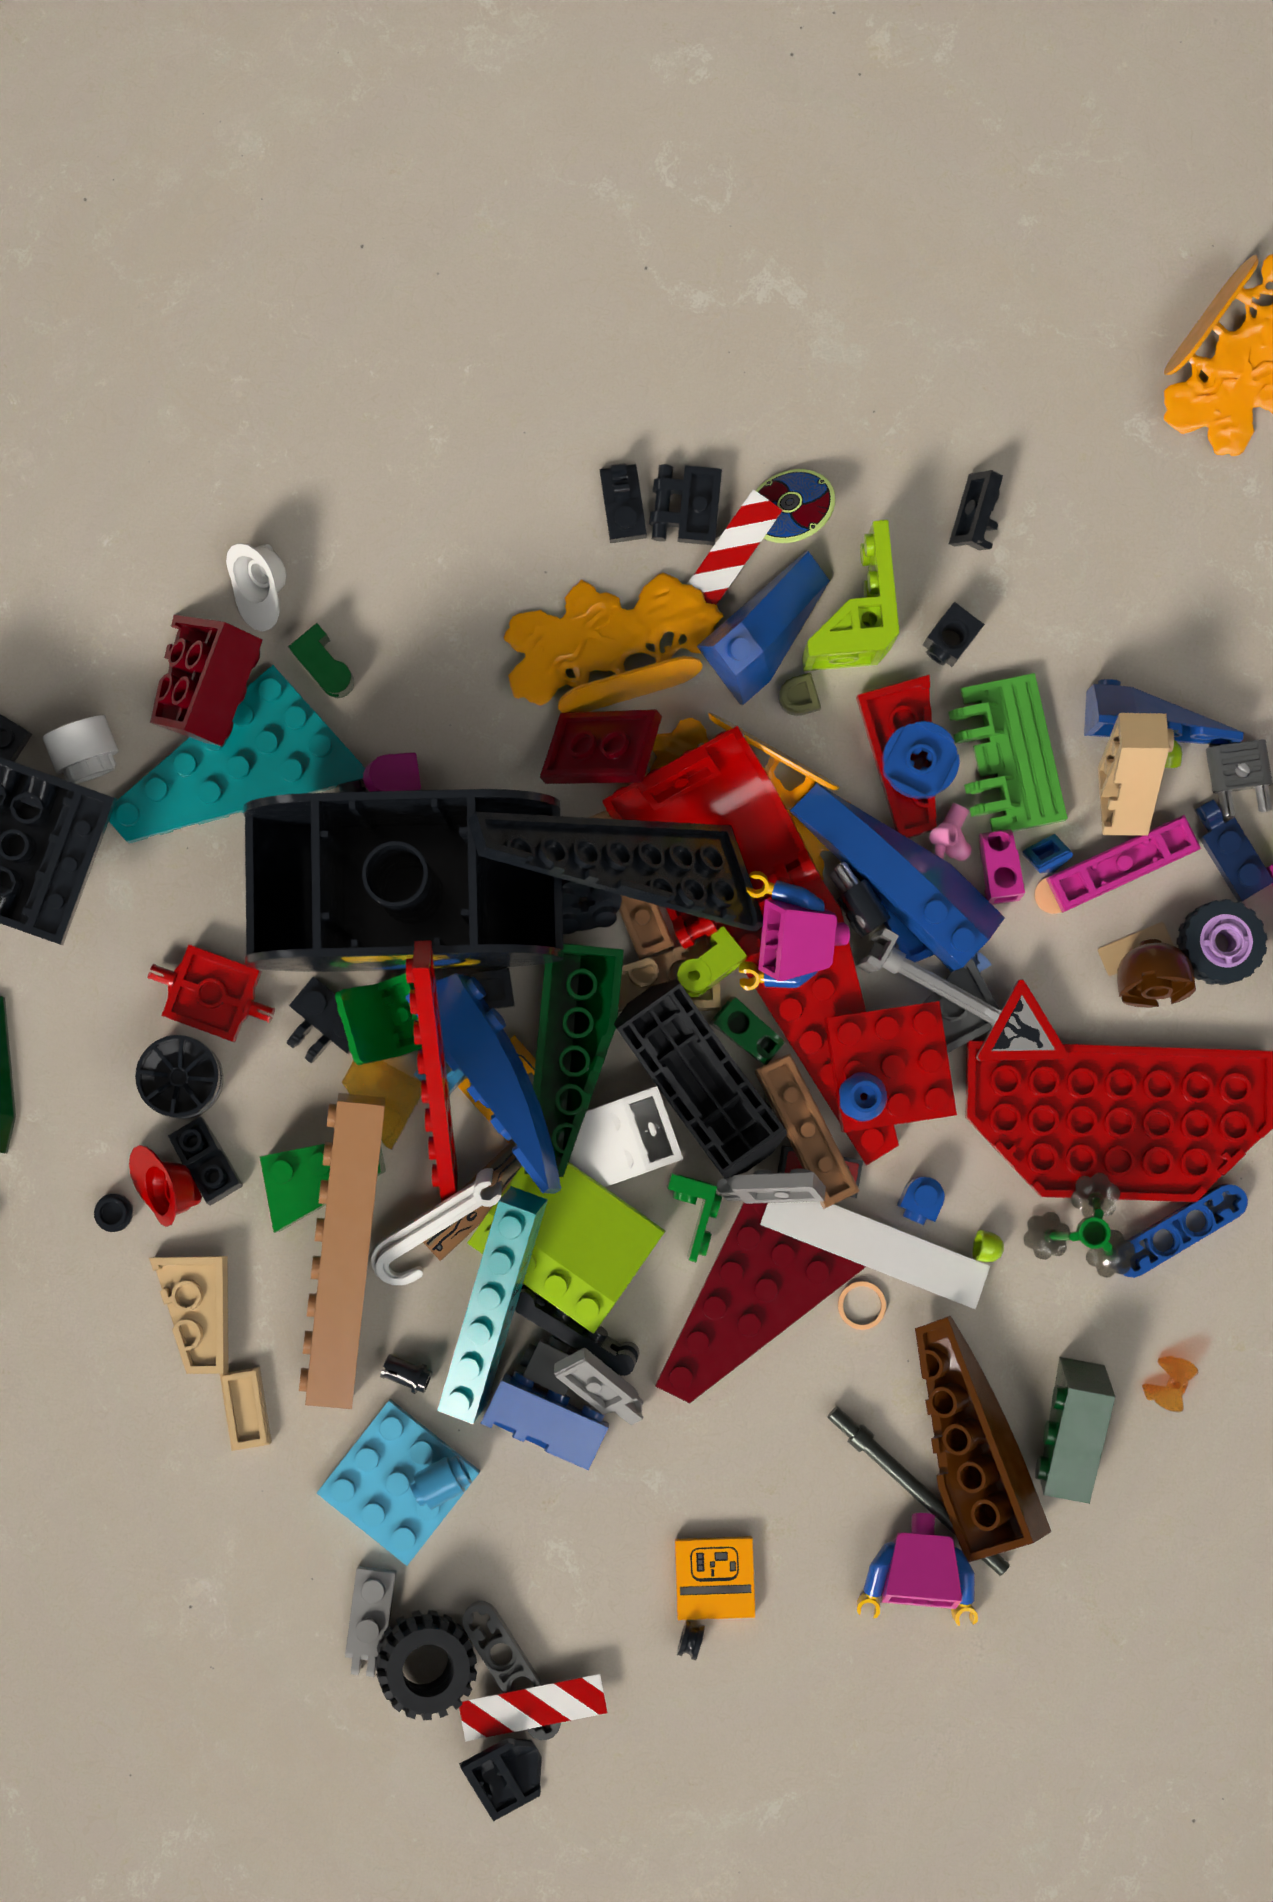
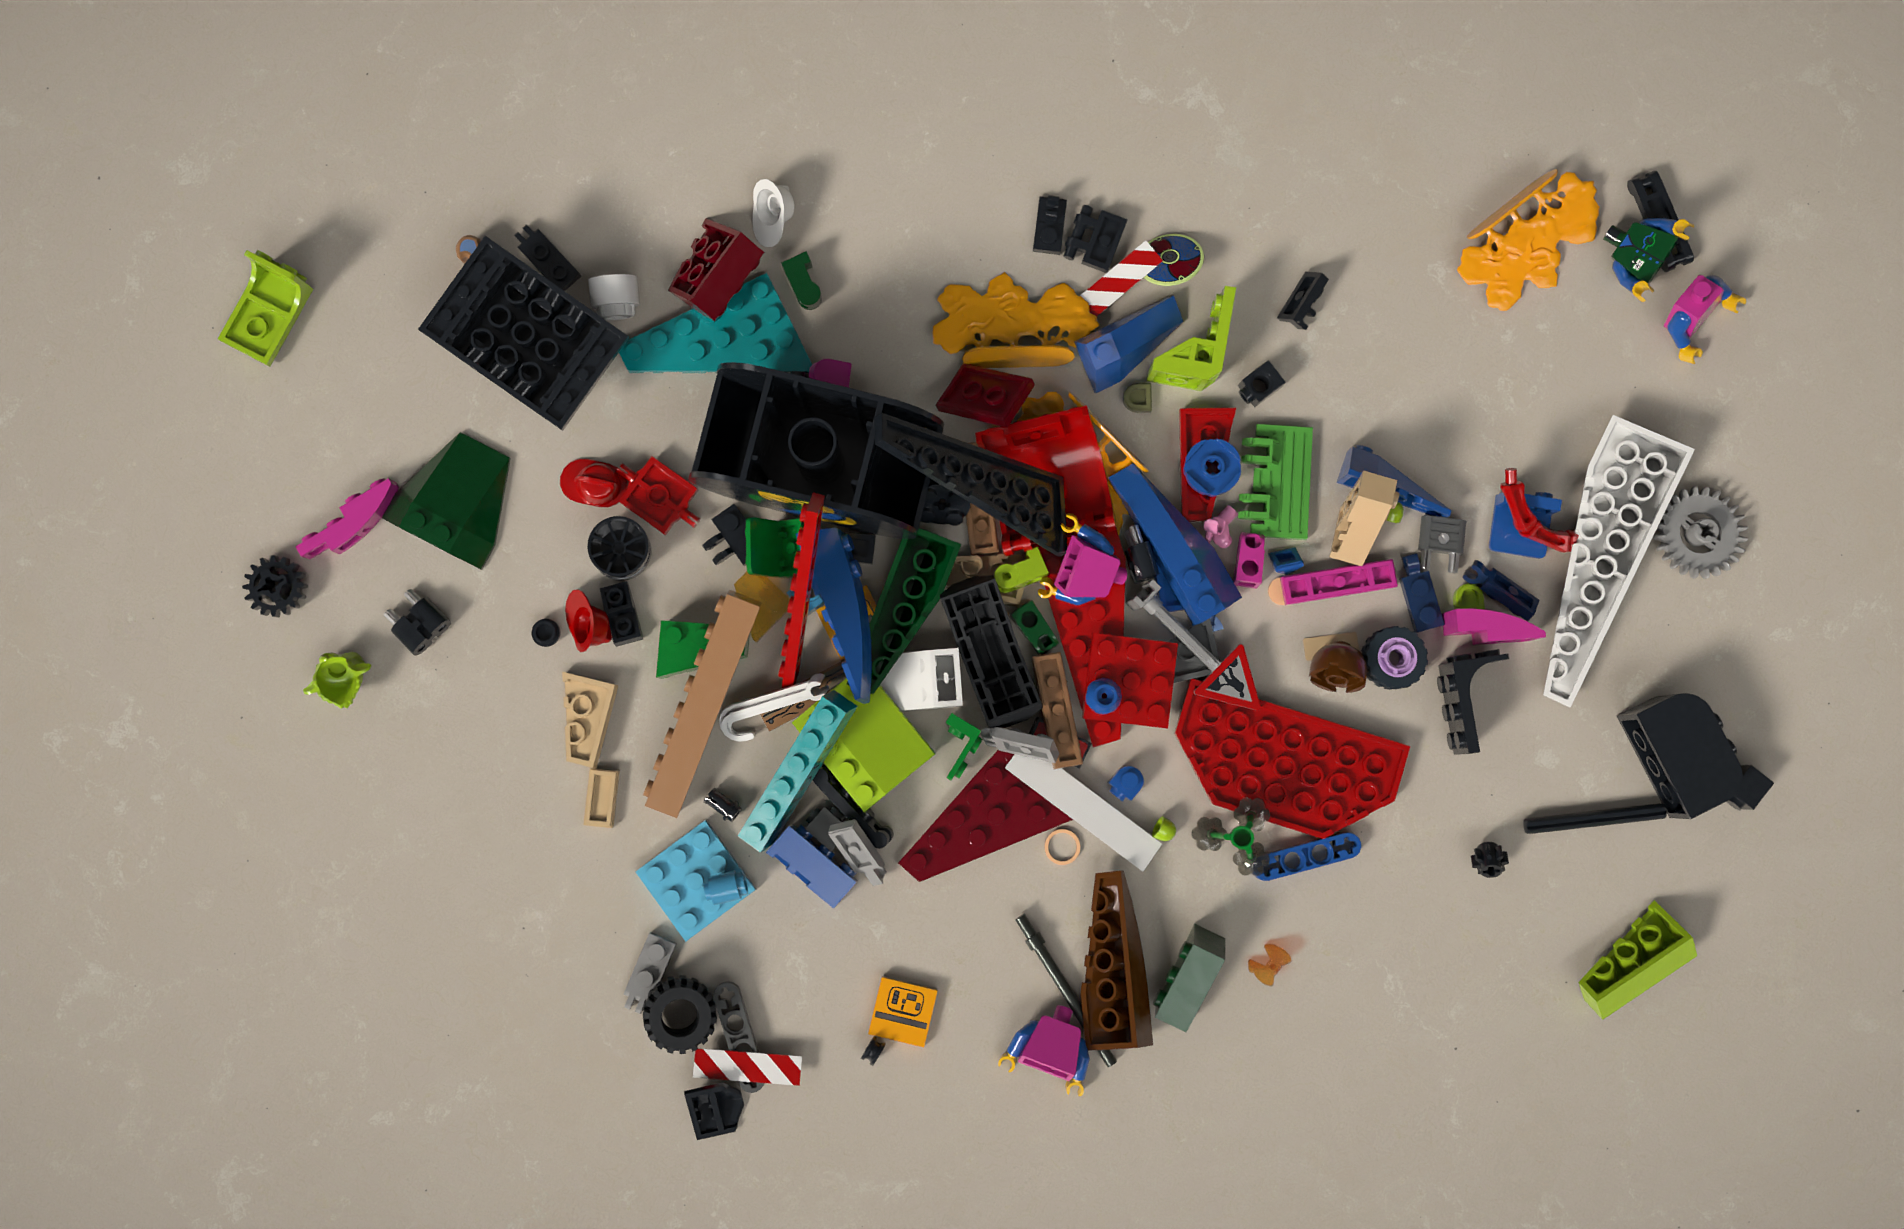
camera: 15 degrees right, 0 degrees up
(121, 1000) = (592, 483): none -> red piece

